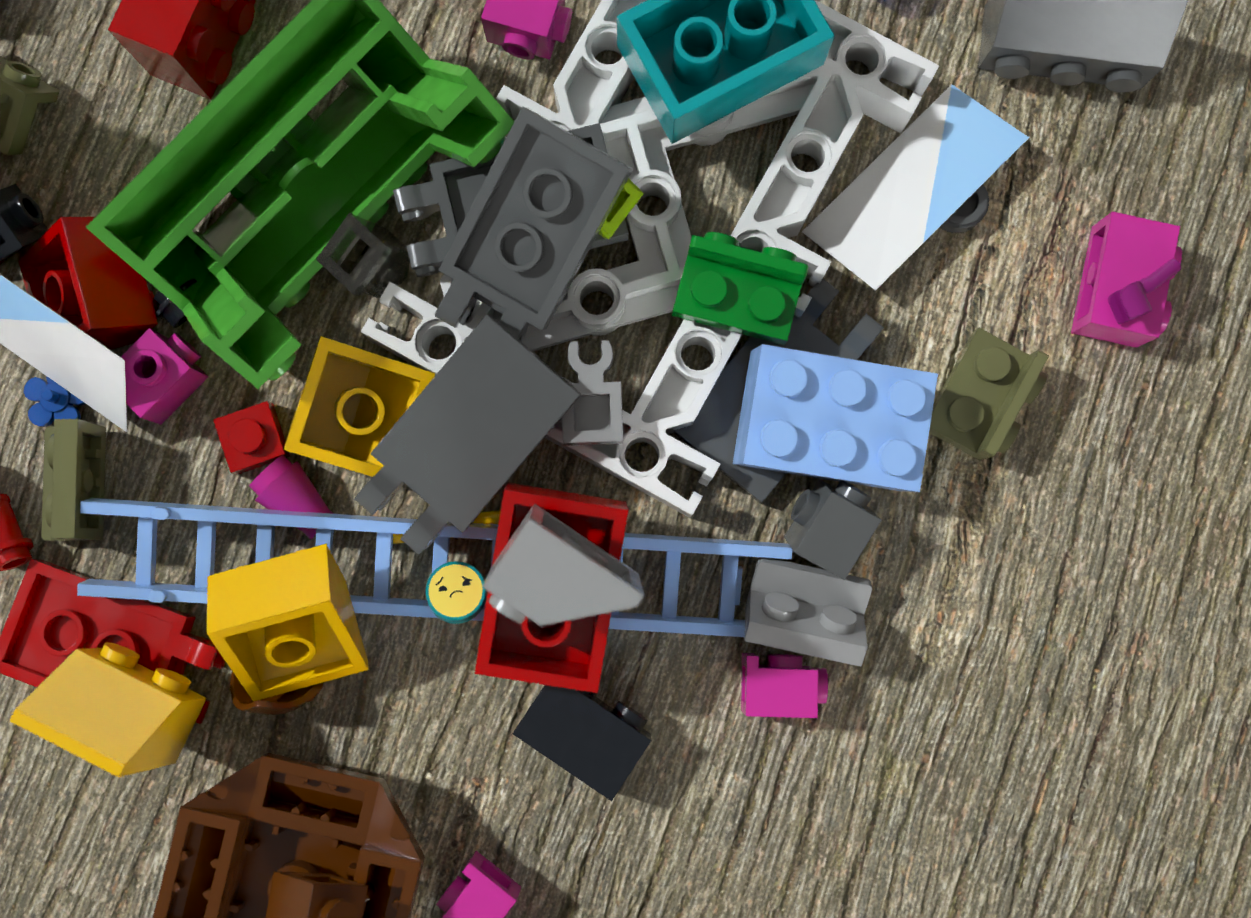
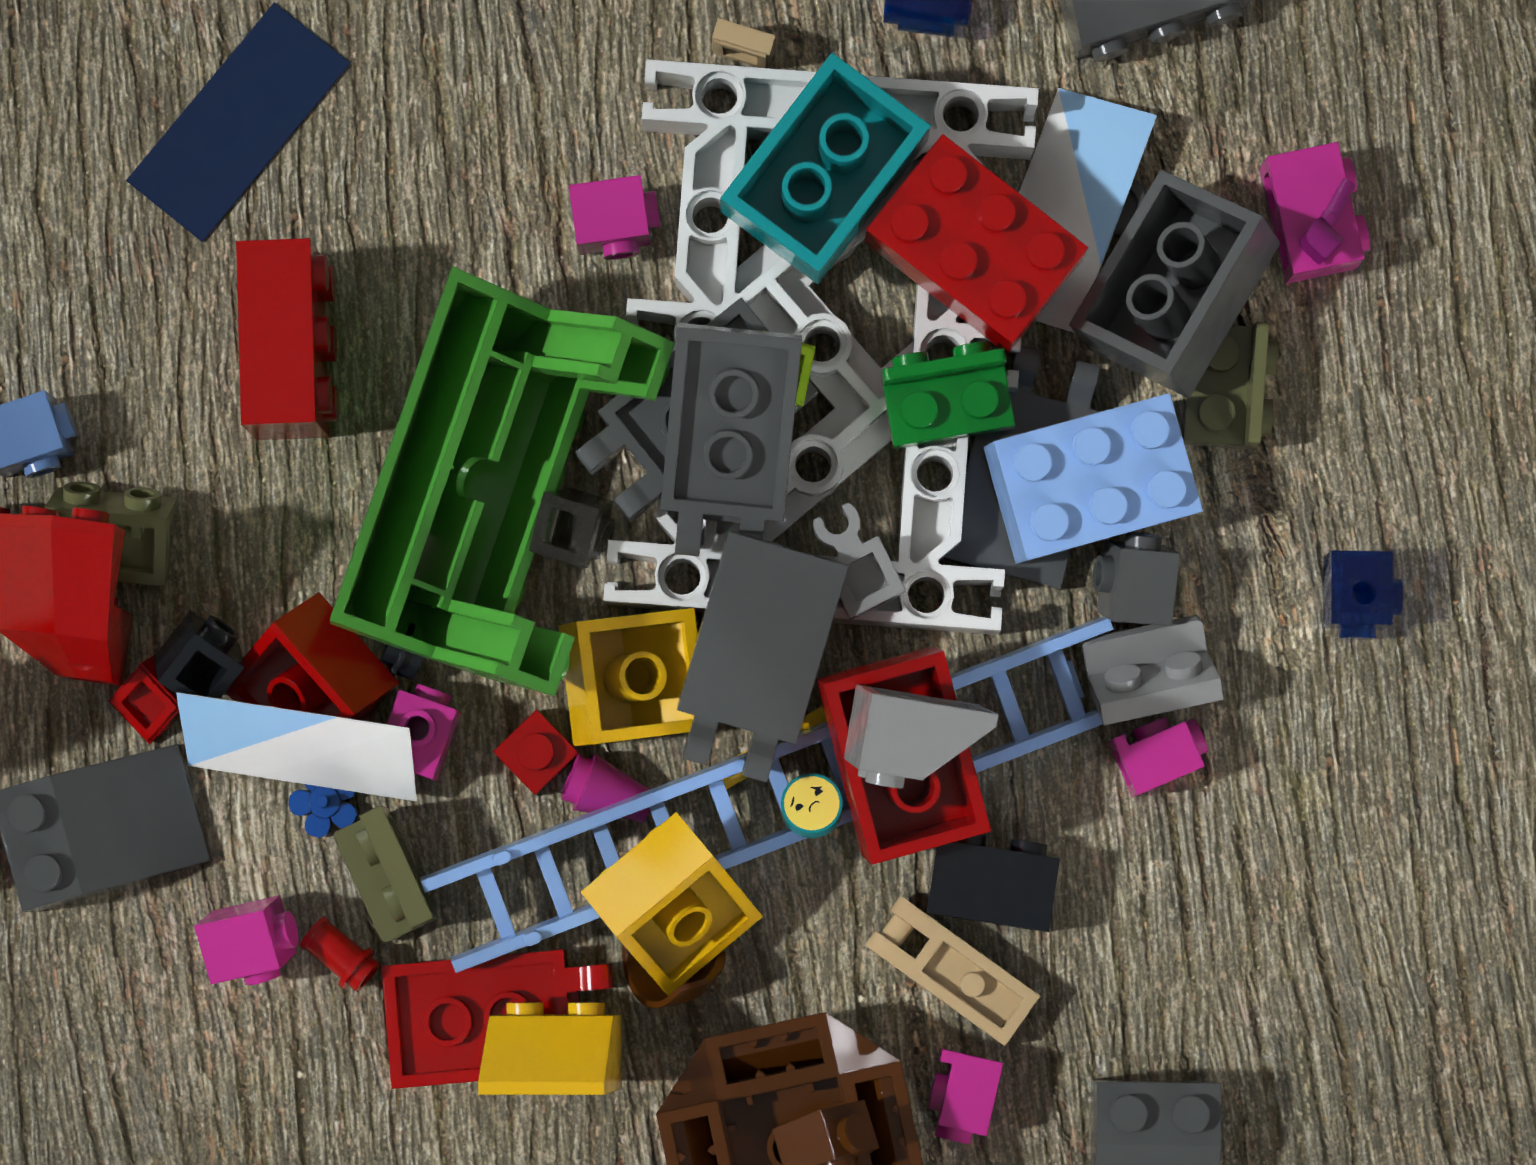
camera: 25 degrees left, 0 degrees up
(516, 794) = (955, 972): none -> tan plate
(825, 164) = (975, 243): none -> red brick
(984, 282) = (1175, 283): none -> dark grey brick
(1021, 625) = (1360, 593): none -> clear blue brick

